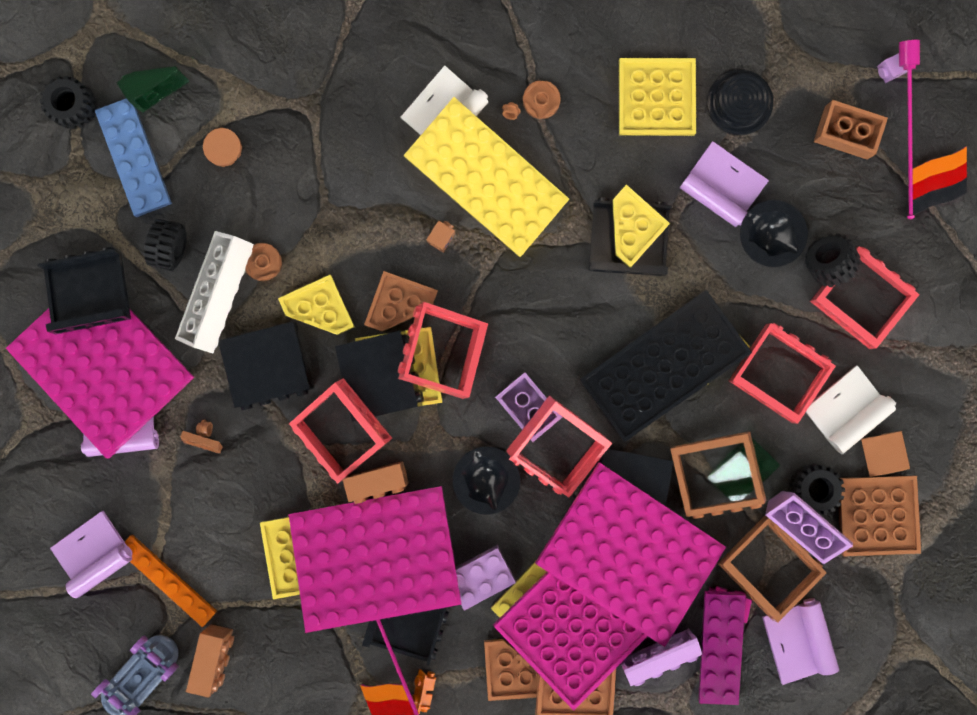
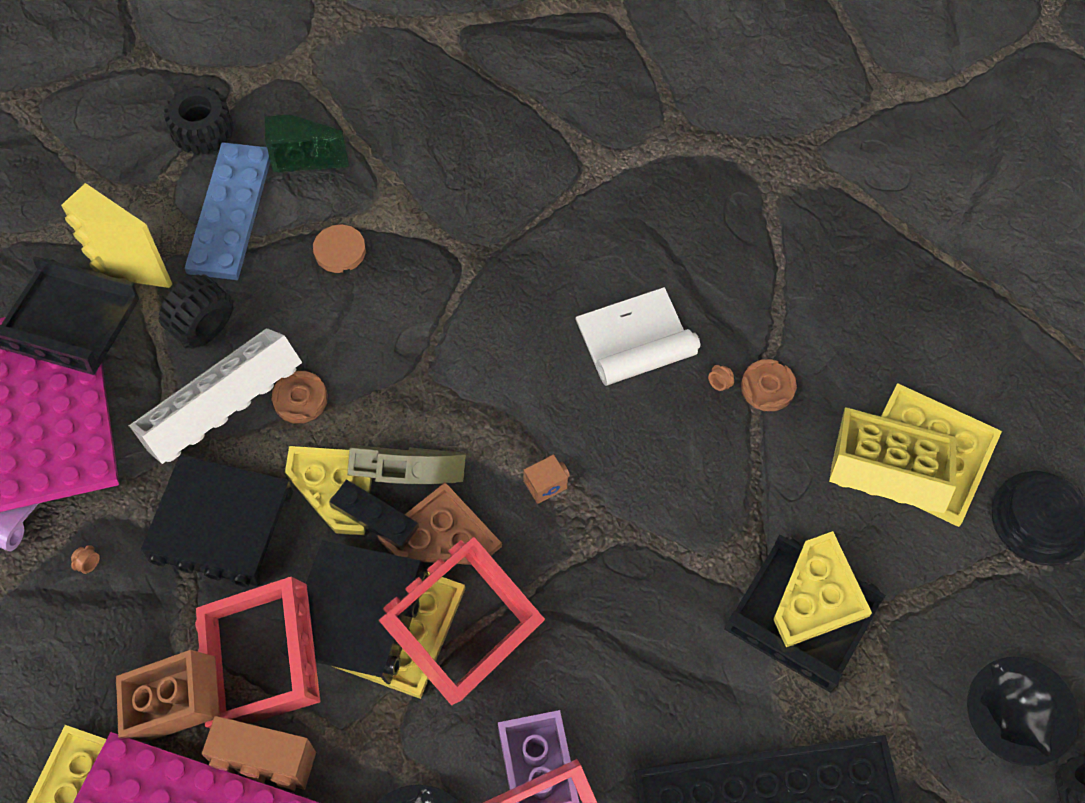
camera: 25 degrees right, 25 degrees down
(80, 228) = (114, 239): none -> light yellow slope
(201, 442) = (68, 573): nougat tile -> none
(307, 480) = (167, 696): none -> nougat brick
(354, 314) = (374, 514): none -> black plate
(357, 275) = (406, 466): none -> olive slope
(486, 177) = (647, 440): light yellow plate -> none
(641, 114) = (895, 461): none -> light yellow slope
(724, 184) = (975, 610): lavender door -> none

